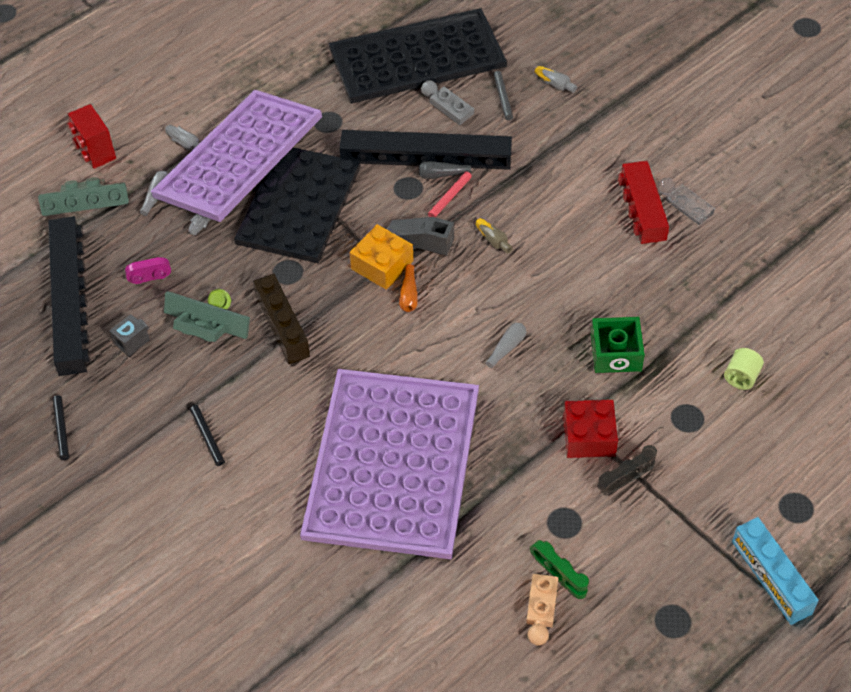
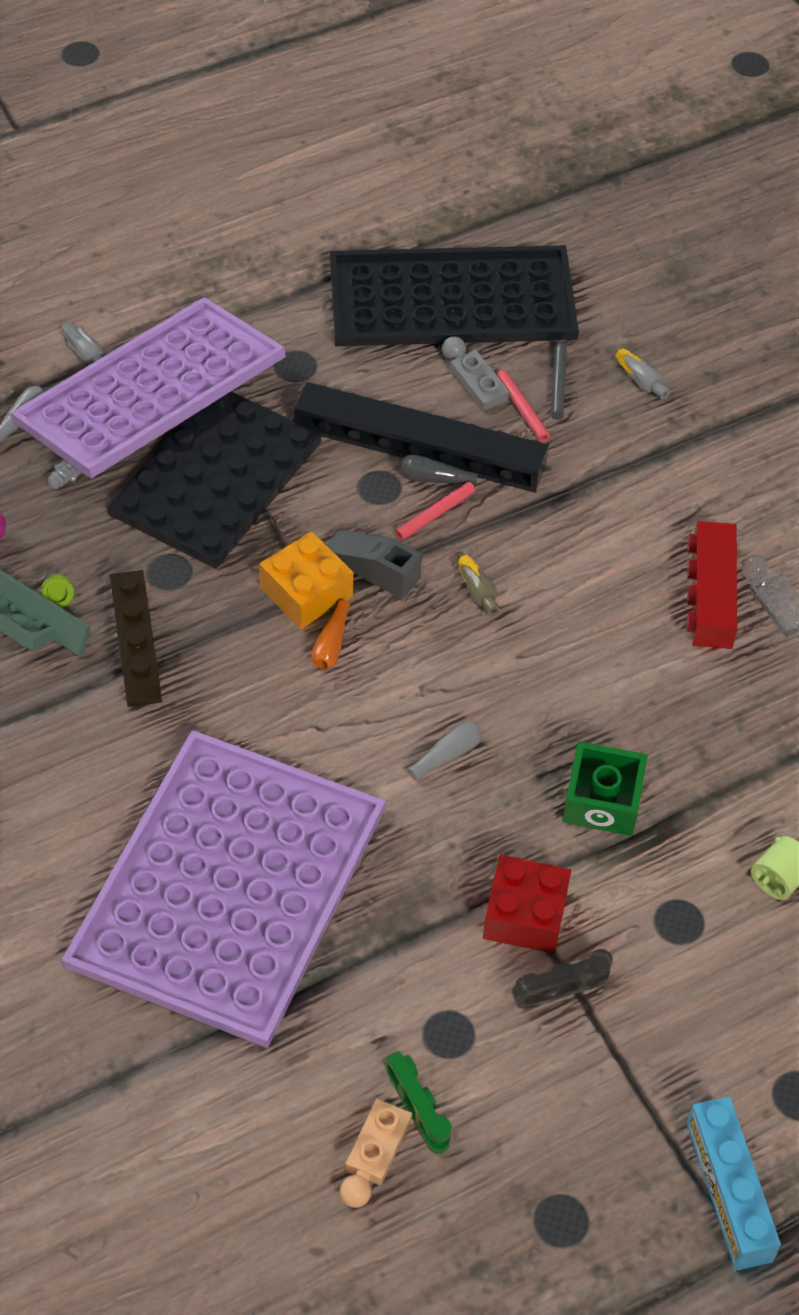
camera: 10 degrees right, 0 degrees up
(486, 117) = (524, 407): none -> coral piece

